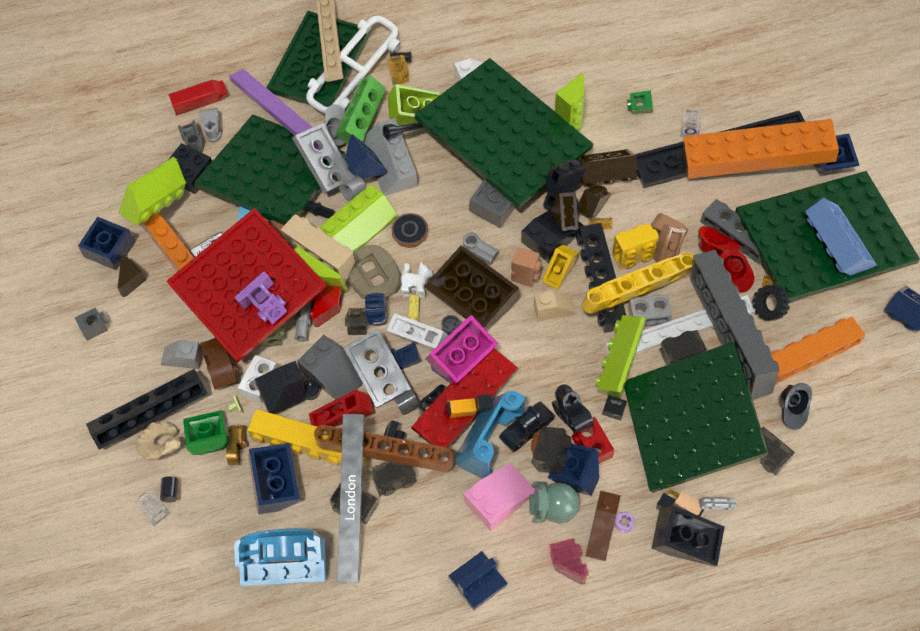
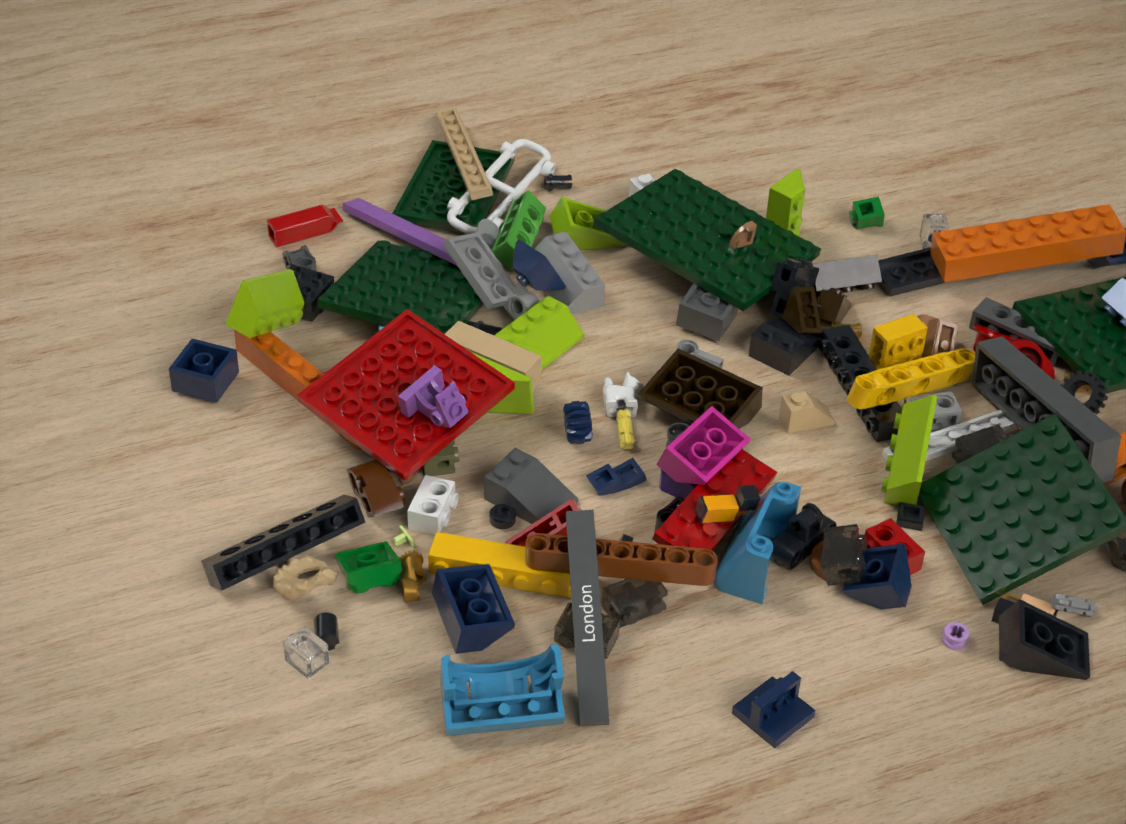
camera: 10 degrees left, 20 degrees down
(85, 319) = (193, 457): dark grey brick -> none
(129, 276) = (241, 405): dark brown slope -> none
(182, 354) = (322, 483): light grey slope -> none
(211, 124) = (324, 250): light grey piece -> none
(281, 387) = (468, 505): black slope -> none
(303, 322) = (481, 444): light grey pin -> none
(326, 305) = (510, 423): red slope -> none
(356, 321) = (553, 441): clear smoke slope -> none
(384, 266) = (574, 384): dark tan piece -> none
(390, 130) = (565, 239): black piece -> none
(393, 375) = (632, 511): hinge -> none
(398, 69) = (555, 188): clear yellow brick -> none
(409, 230) = (603, 347): black tile -> none
(416, 332) = (636, 443): white slope -> none
(498, 496) = (778, 617): bright pink slope -> none
(525, 267) = (764, 368): nougat brick -> none
(529, 137) = (744, 235): none -> medium nougat tile
(555, 502) = (857, 611): sand green tile -> none
(560, 266) = (806, 371): yellow slope -> none
(567, 561) = (892, 680): clear pink slope -> none
(570, 409) = (860, 506): black piece -> none
(602, 525) = (928, 637): reddish brown slope -> none

